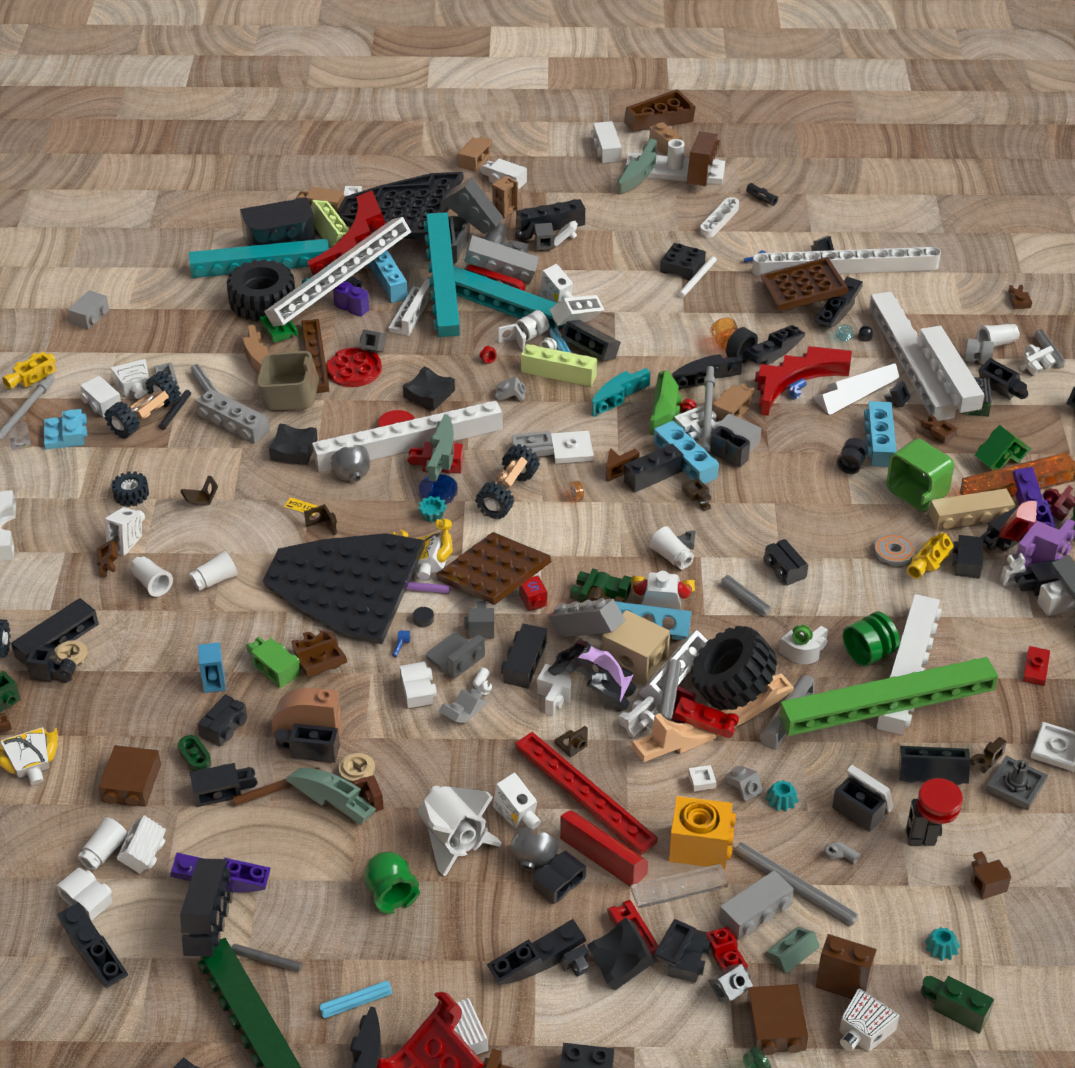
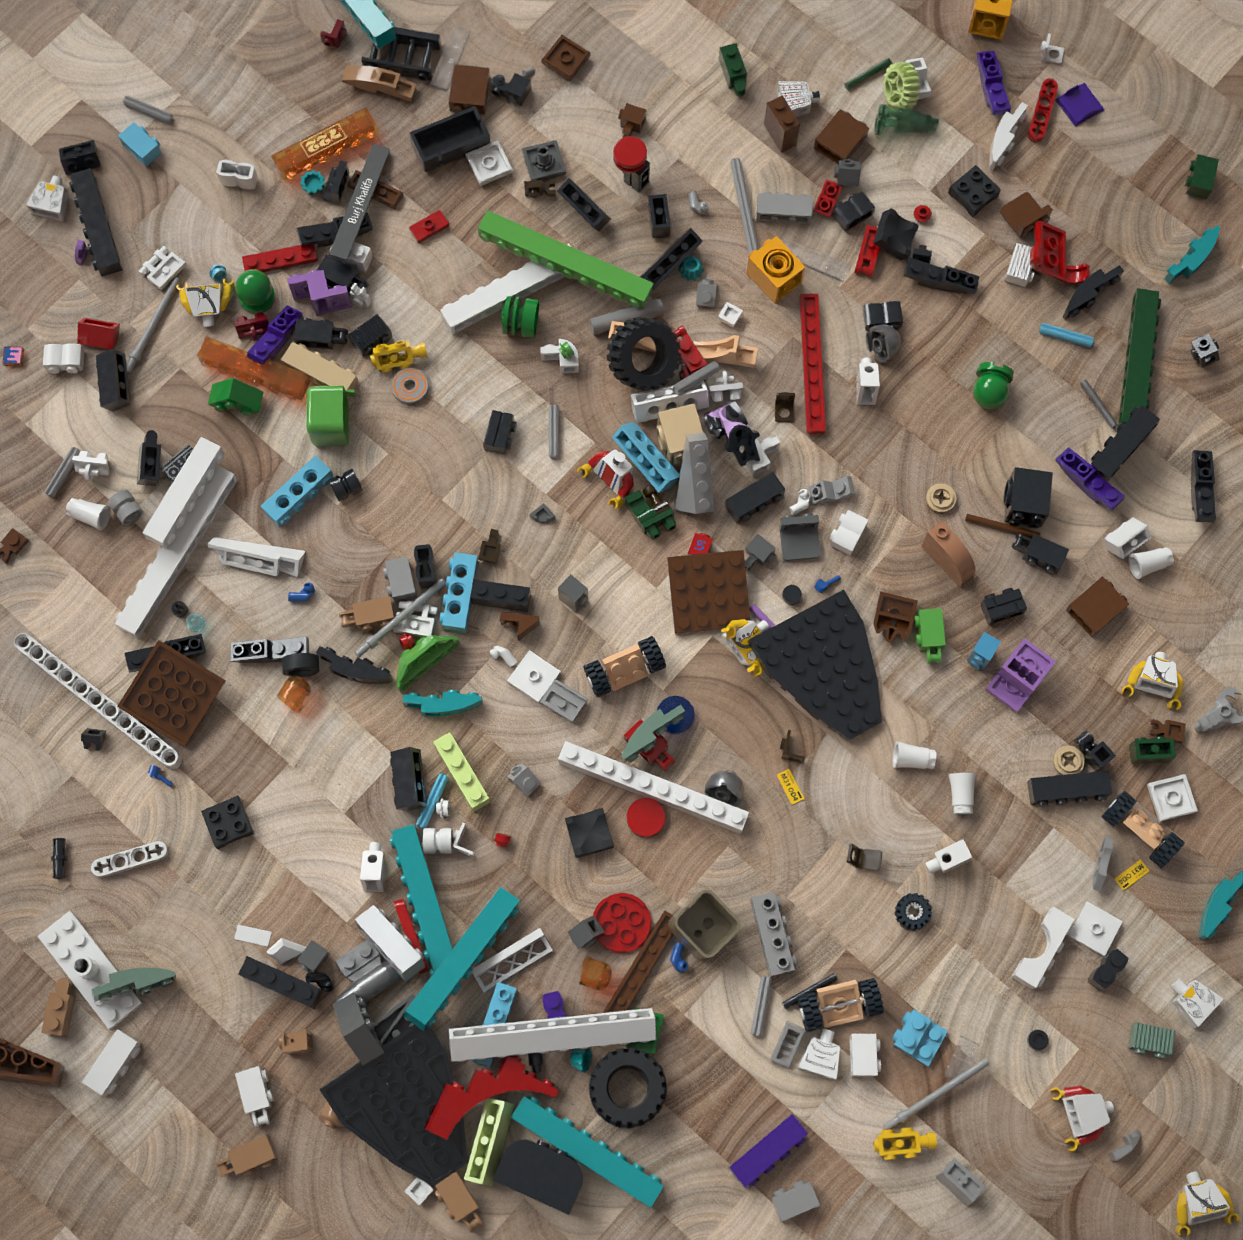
camera: 140 degrees left, 30 degrees up
(83, 888) = (1183, 532): white brick -> none
(106, 556) = (980, 842): reddish brown plate -> none
(130, 320) = (768, 1150): none -> dark purple brick
(162, 671) = (1020, 675): none -> medium lavender bracket
(197, 756) = (1040, 595): dark green plate -> none
(253, 349) = (694, 994): medium nougat slope -> none
(270, 808) = (1027, 497): none -> black brick
(293, 444) = (750, 855): black brick -> none
(309, 742) = (965, 533): black brick -> none
(325, 787) = (976, 485): sand green slope -> none
(343, 323) = (595, 974): none -> clear orange helmet
(371, 791) = (947, 472): copper bracket -> none
(432, 508) = (700, 692): teal piece -> none
(455, 823) = (922, 390): white brick -> none
(576, 490) = (577, 622): clear orange tile -> none
(577, 308) = (393, 813): white brick -> none
(597, 233) = (252, 935): none -> white sticker
(598, 495) = (573, 594): none -> dark grey brick
(602, 848) = (839, 311): red brick -> none
(611, 442) = (504, 653): none -> white arm
(614, 1014) = (922, 218): none -> red plate
(671, 548) = (566, 507): white plant -> none
(674, 942) = (862, 210): black tile -> none
(697, 277) = (241, 793): white bar -> none
(702, 157) = (65, 939): reddish brown wedge -> none
(793, 949) = (787, 174): sand green slope -> none
(805, 774) = (672, 257): none -> black brick
(814, 364) = (286, 611): red arch -> none
(872, 785) = (643, 217): white plate -> none
(898, 394) = (235, 518): black tile -> none
(940, 430) = (247, 460): reddish brown plate -> none
(942, 943) = (700, 111): teal piece -> none
(1019, 521) = (322, 309): red brick -> none

